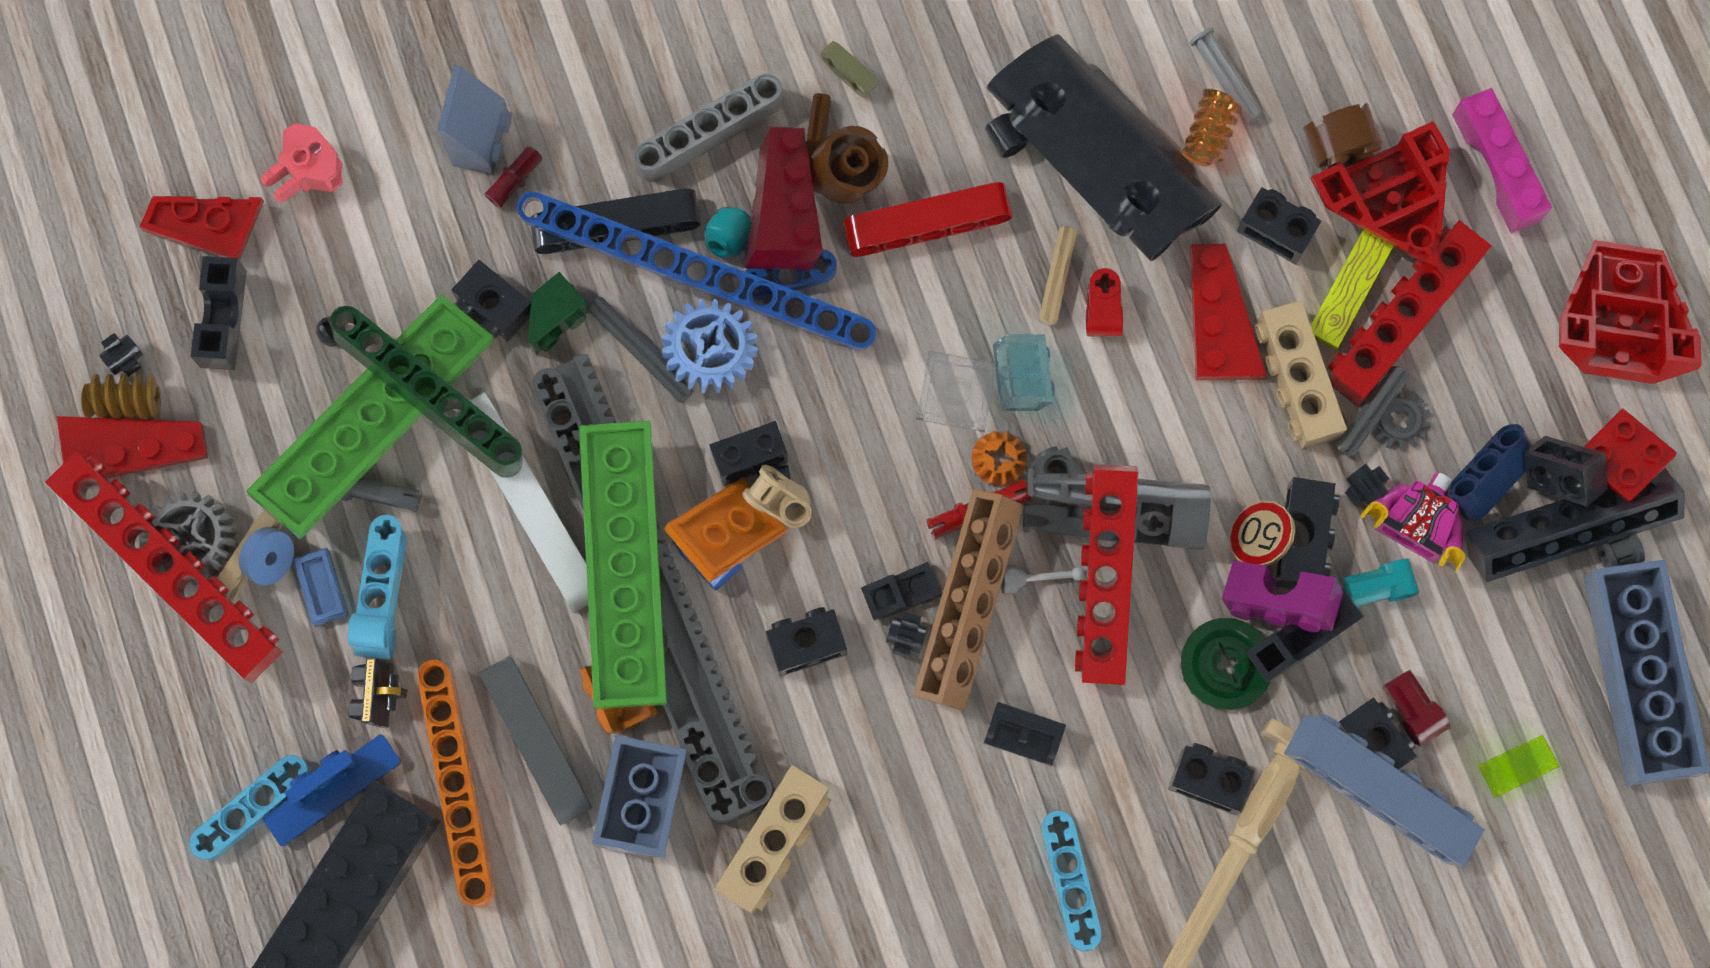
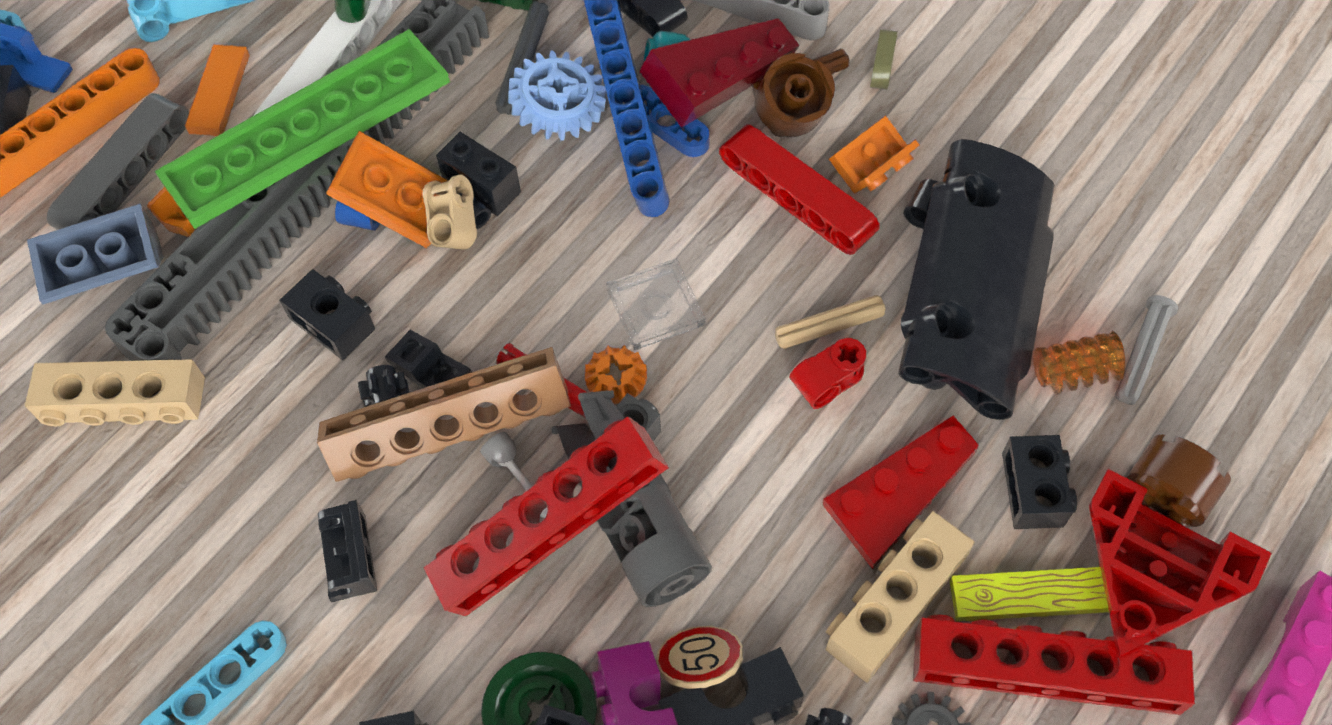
camera: 60 degrees right, 15 degrees down
(378, 695) = (102, 41): black hips -> none
(498, 620) = (217, 90): none -> orange tile
(938, 143) = (871, 155): none -> orange bracket
(1023, 372) = (709, 339): clear light blue brick -> none
(1372, 411) = (917, 693): dark grey axle -> none

